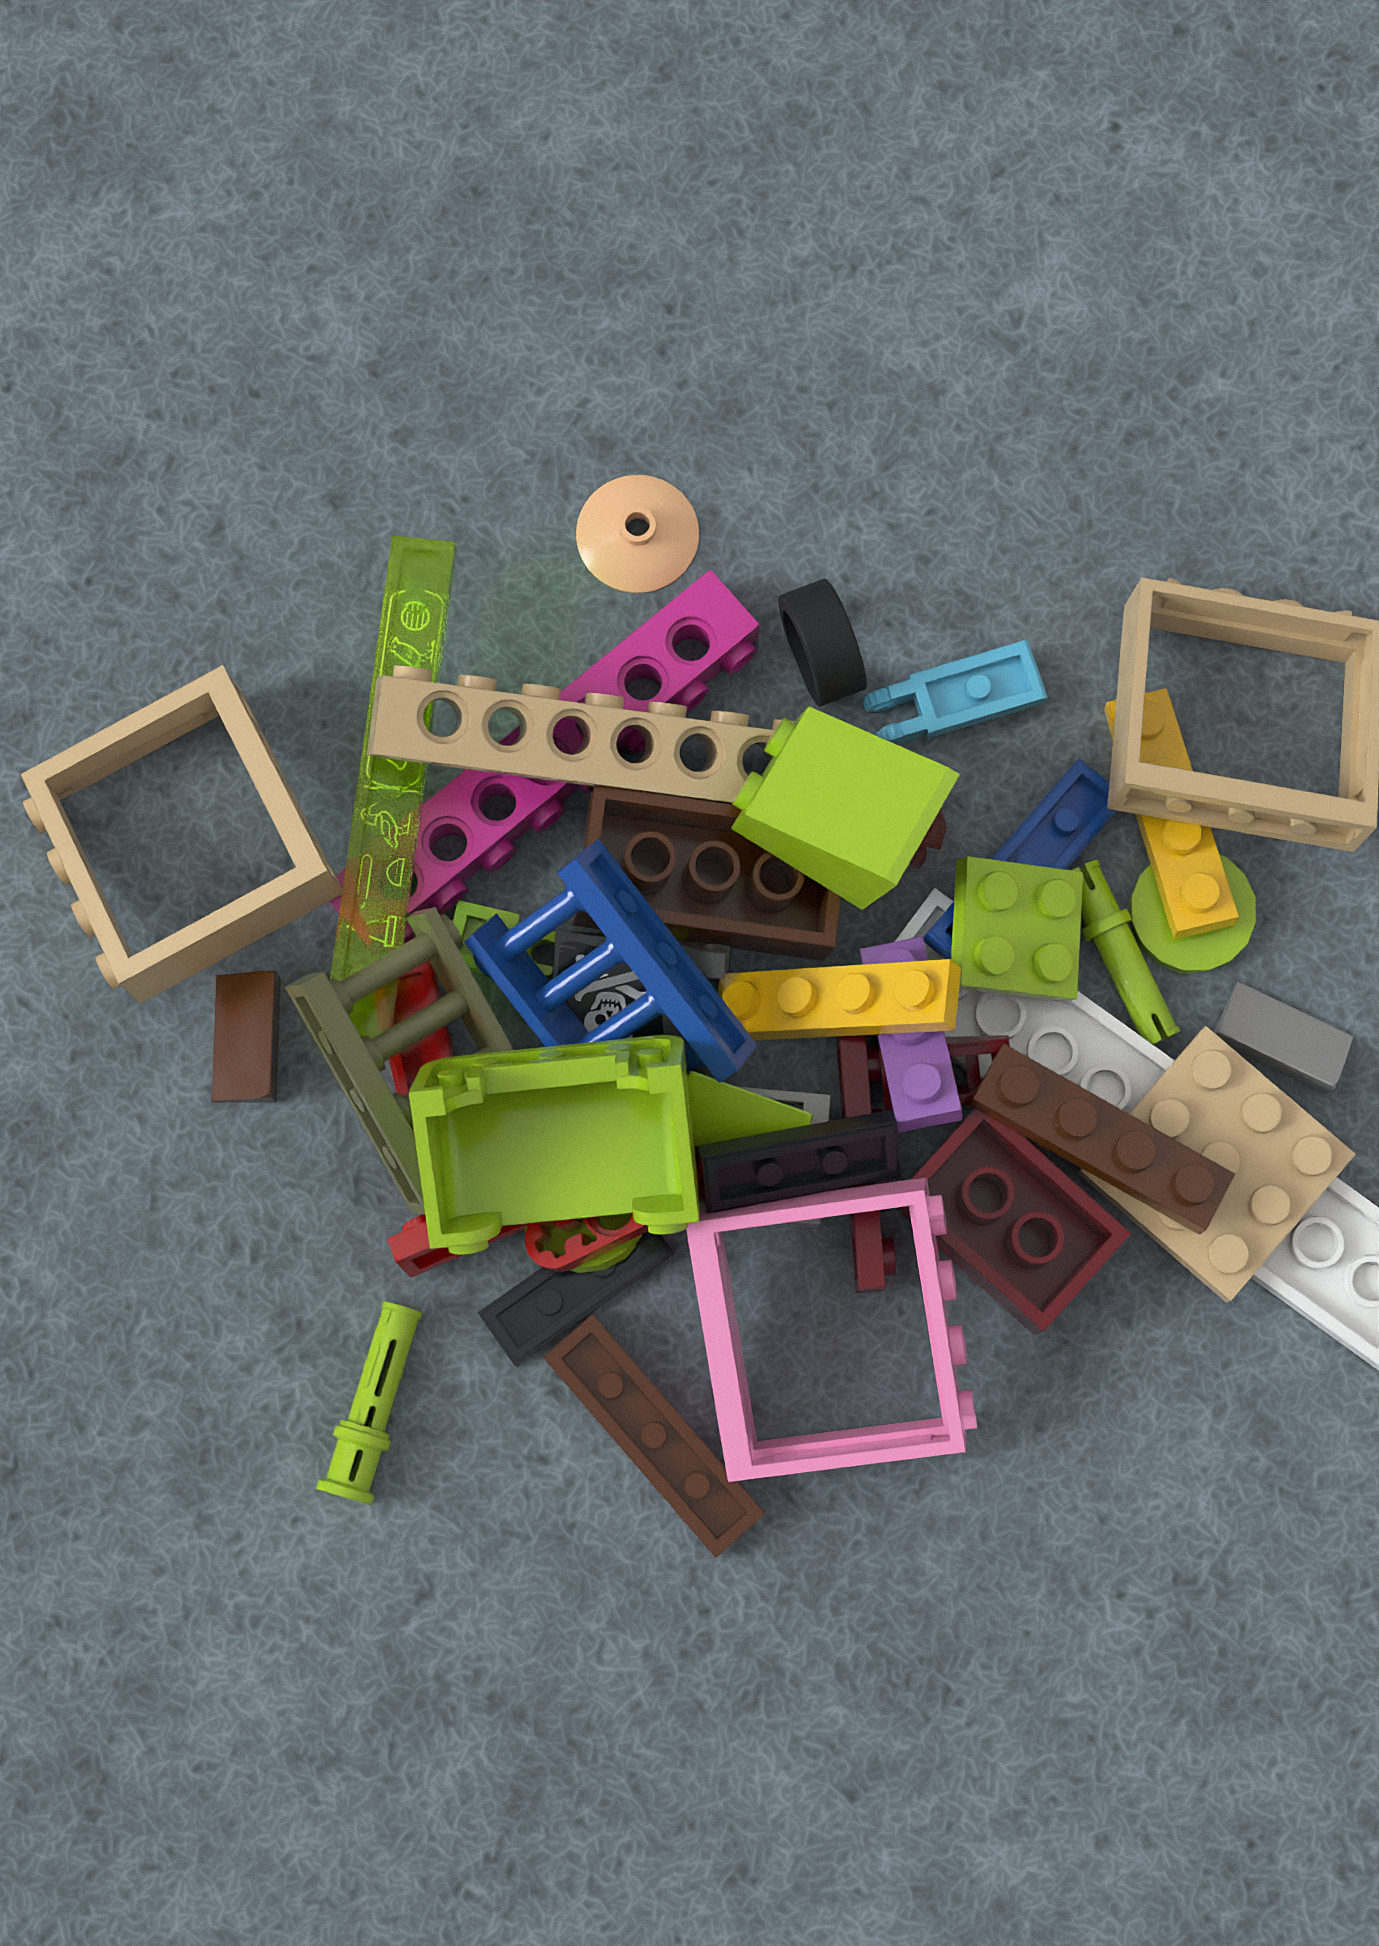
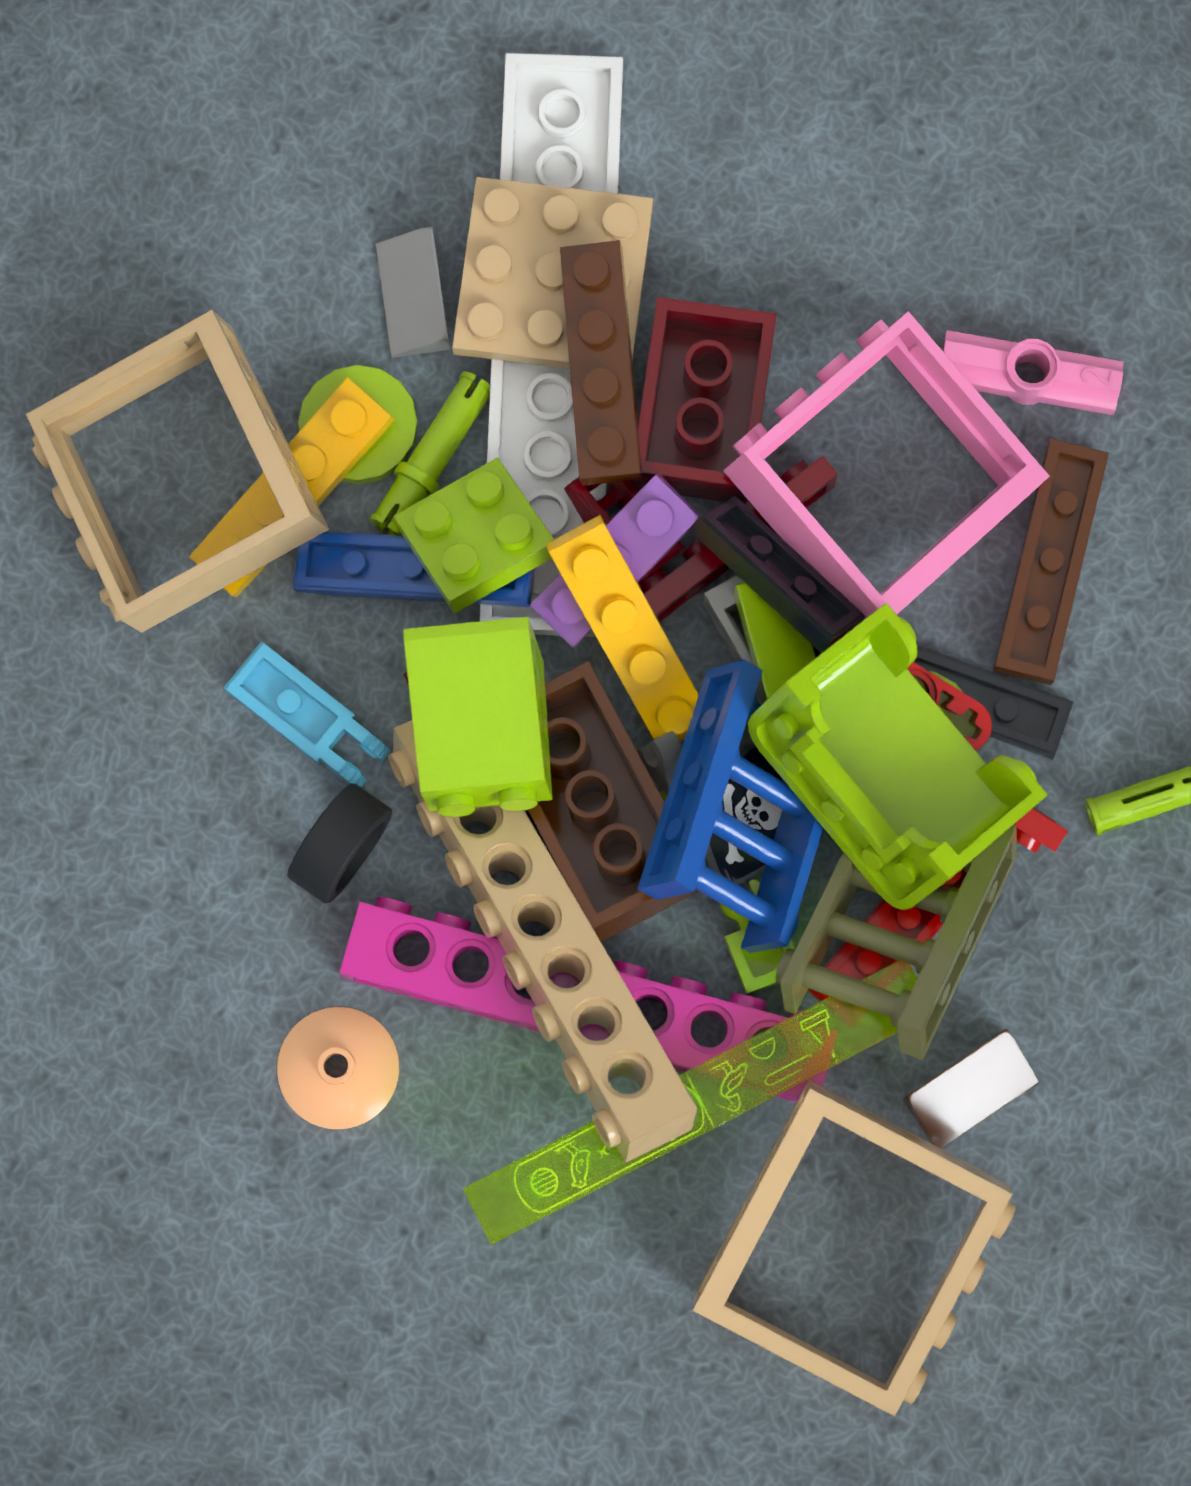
camera: 120 degrees left, 0 degrees up
(808, 1573) = (1069, 379): none -> bright pink piece

